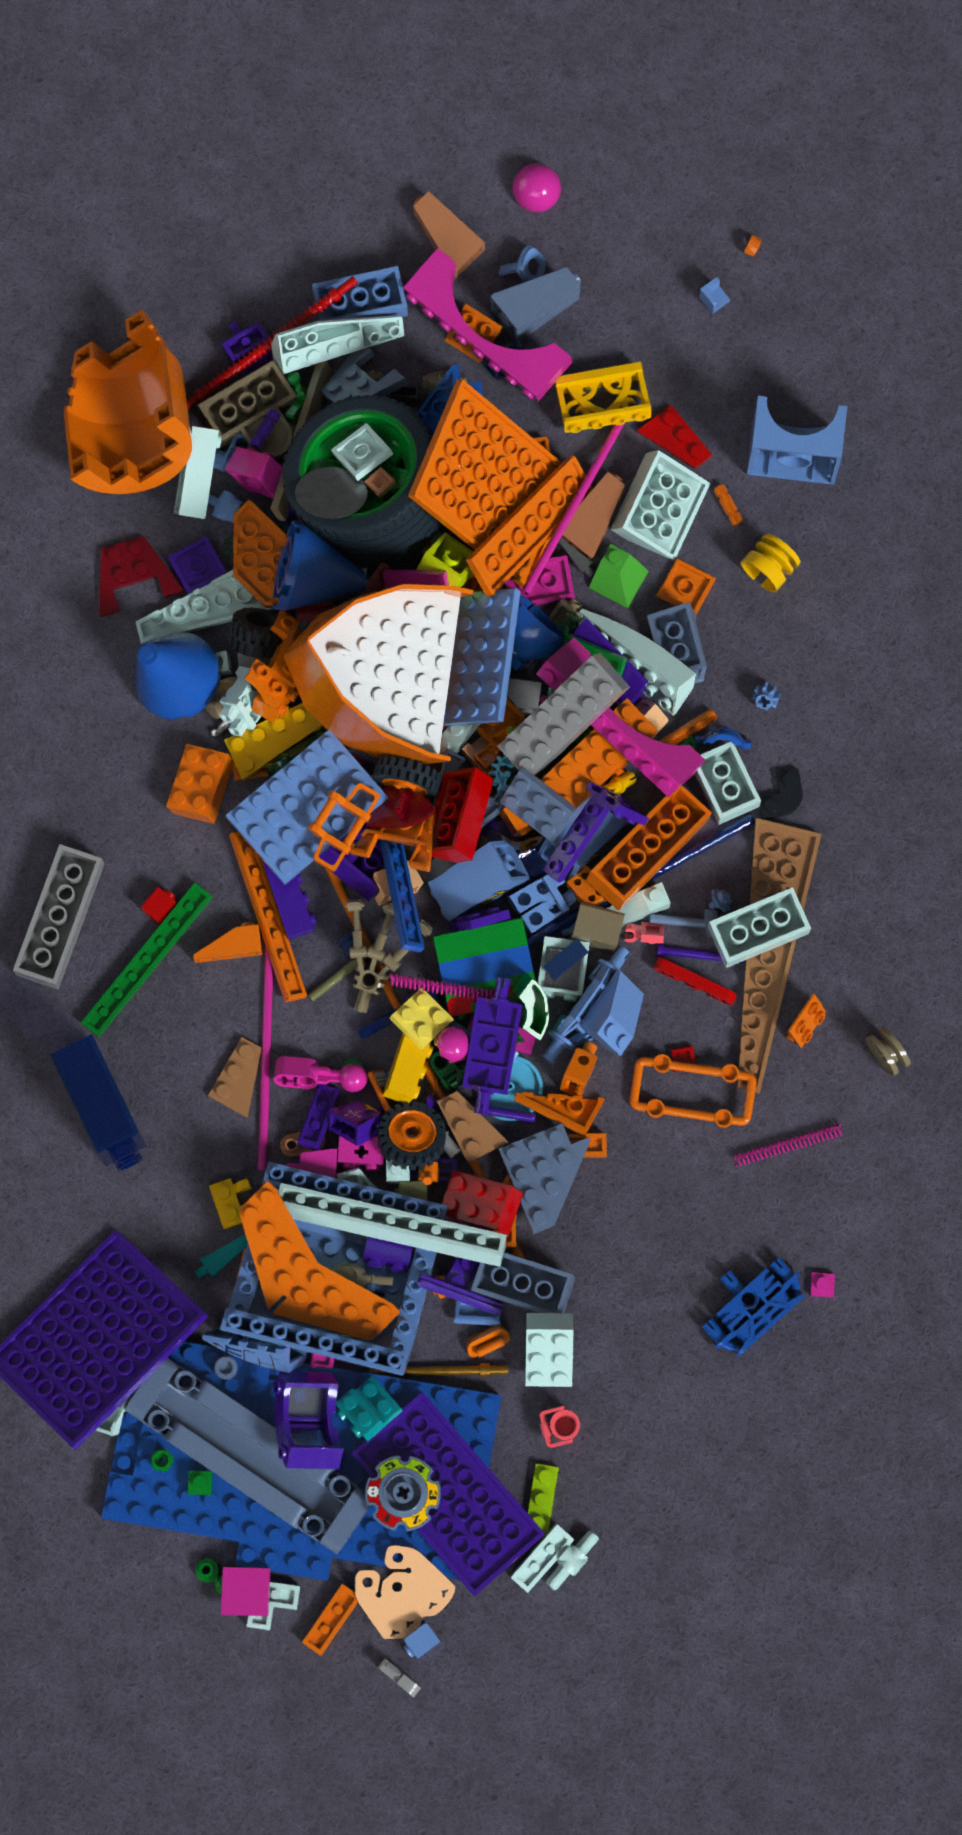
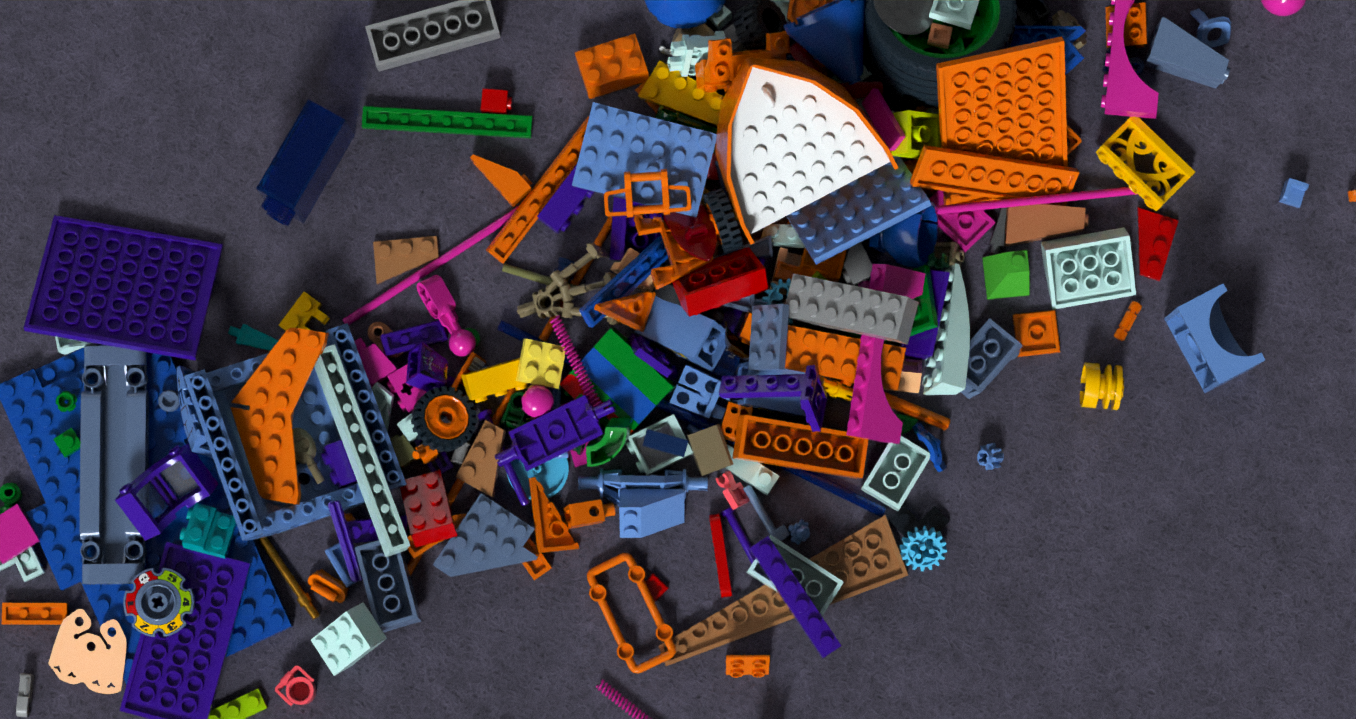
camera: 55 degrees right, 5 degrees up
(420, 1641) = (63, 693): medium blue brick -> none
(429, 908) = (629, 310): none -> orange wing
(779, 935) = (795, 597): none -> dark purple brick
(802, 817) = (919, 538): none -> medium azure gear

